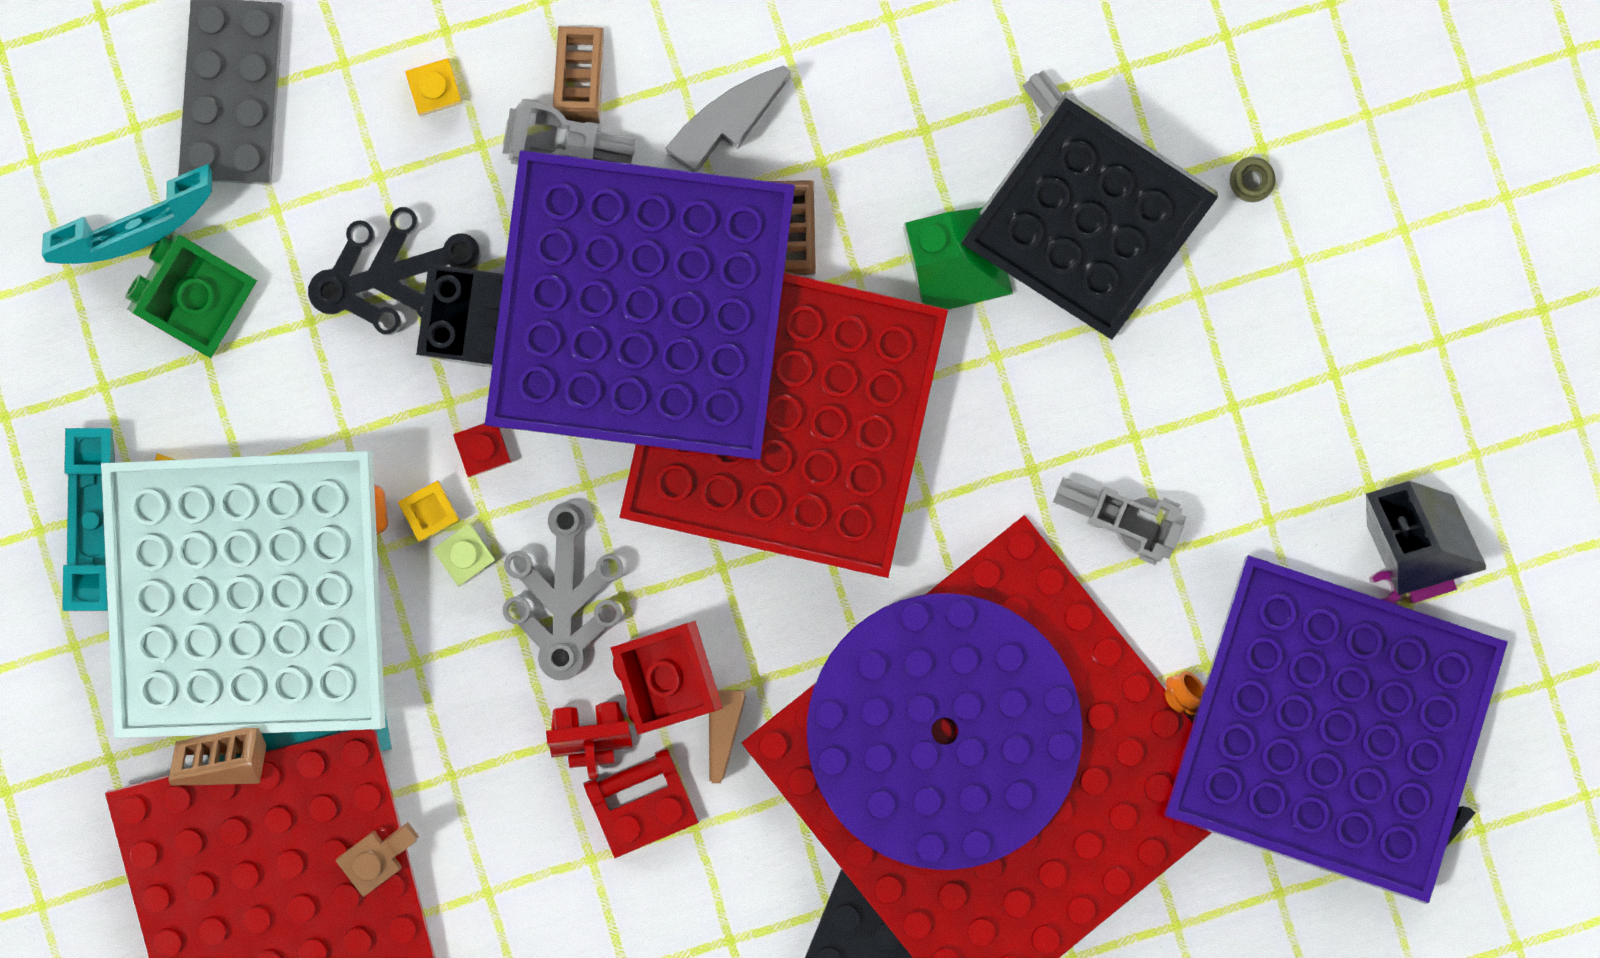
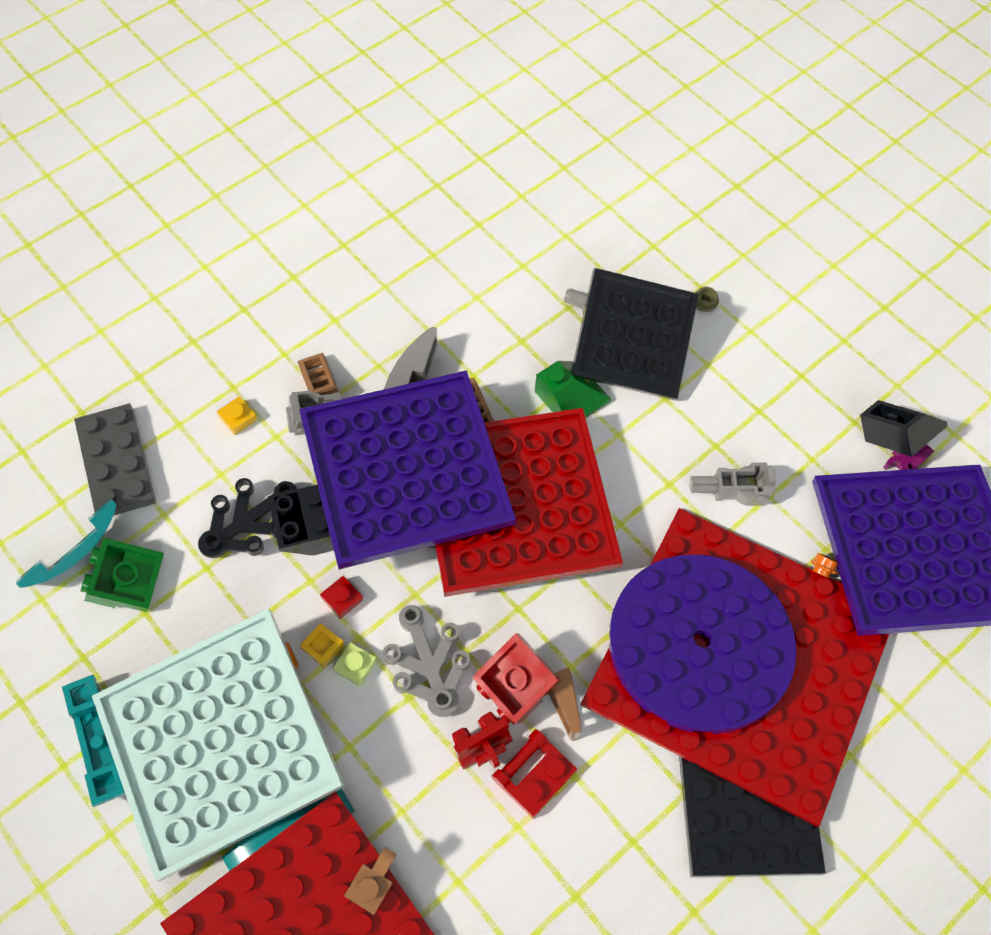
camera: 25 degrees left, 25 degrees down
(231, 771) = (243, 854): medium nougat slope -> none

